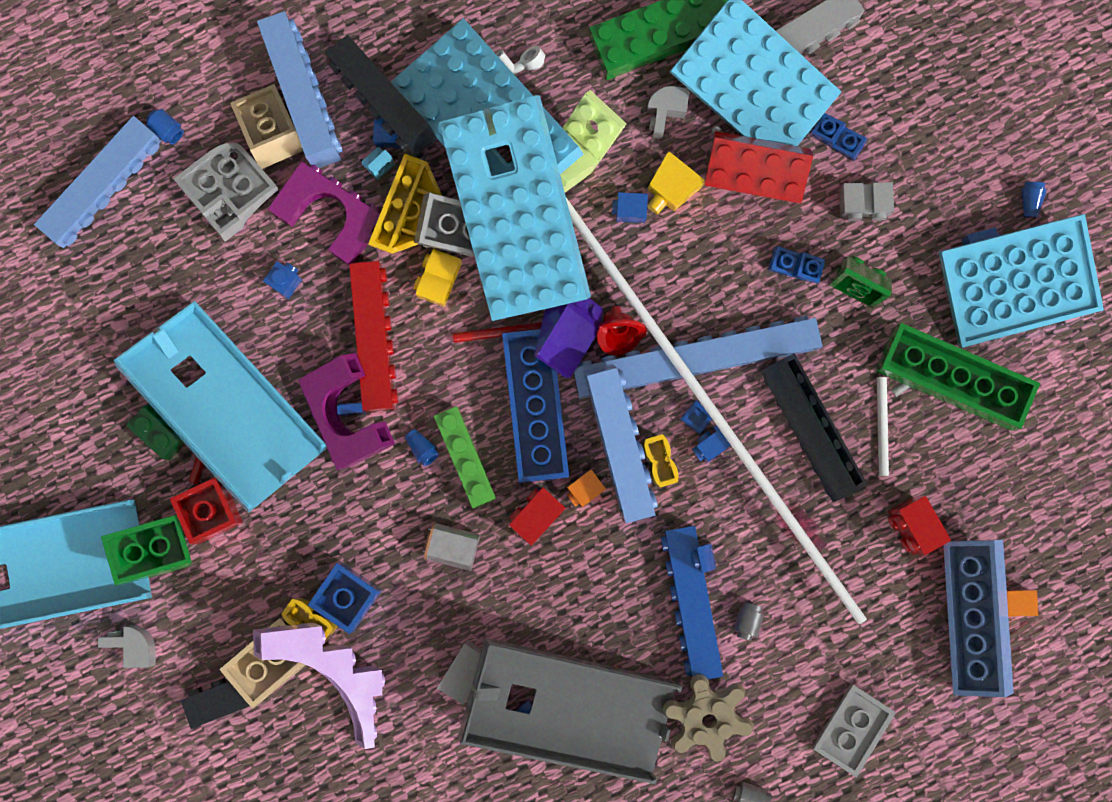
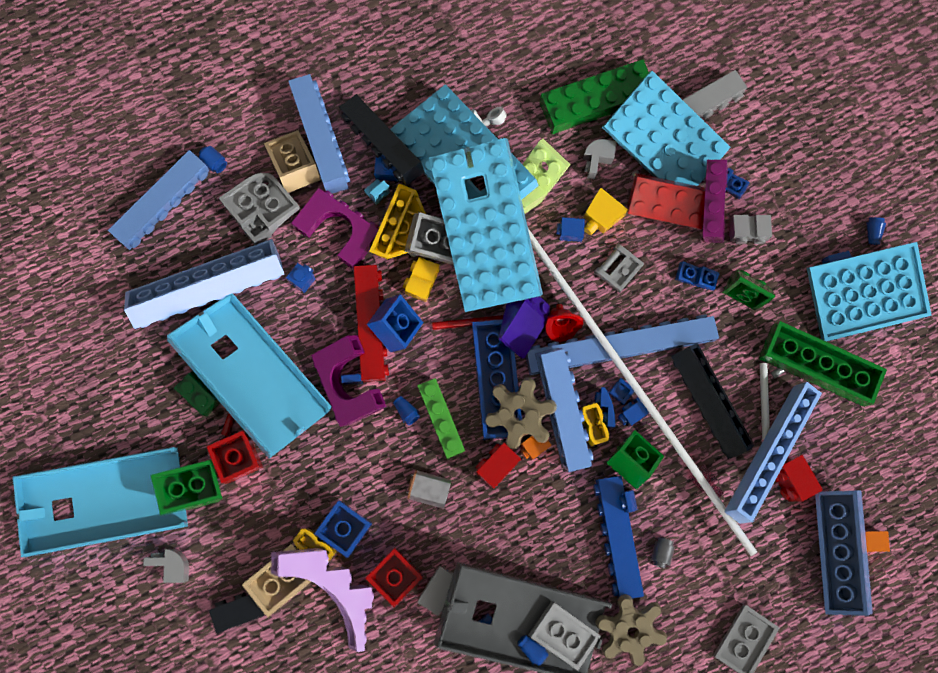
camera: 10 degrees left, 5 degrees down
(158, 291) = (203, 284): none -> light blue brick
(403, 337) = (395, 323): none -> blue brick
(409, 656) = (394, 577): none -> red brick
(579, 445) = (533, 409): none -> dark tan plate
(584, 745) = (534, 651): none -> blue cone
(622, 725) = (564, 635): none -> light grey plate
(674, 432) = (603, 399): none -> blue slope
(701, 260) = (624, 271): none -> light grey plate
(713, 505) = (635, 459): none -> green brick
(819, 137) = (715, 201): none -> magenta arch
(889, 493) = (772, 453): none -> light blue brick

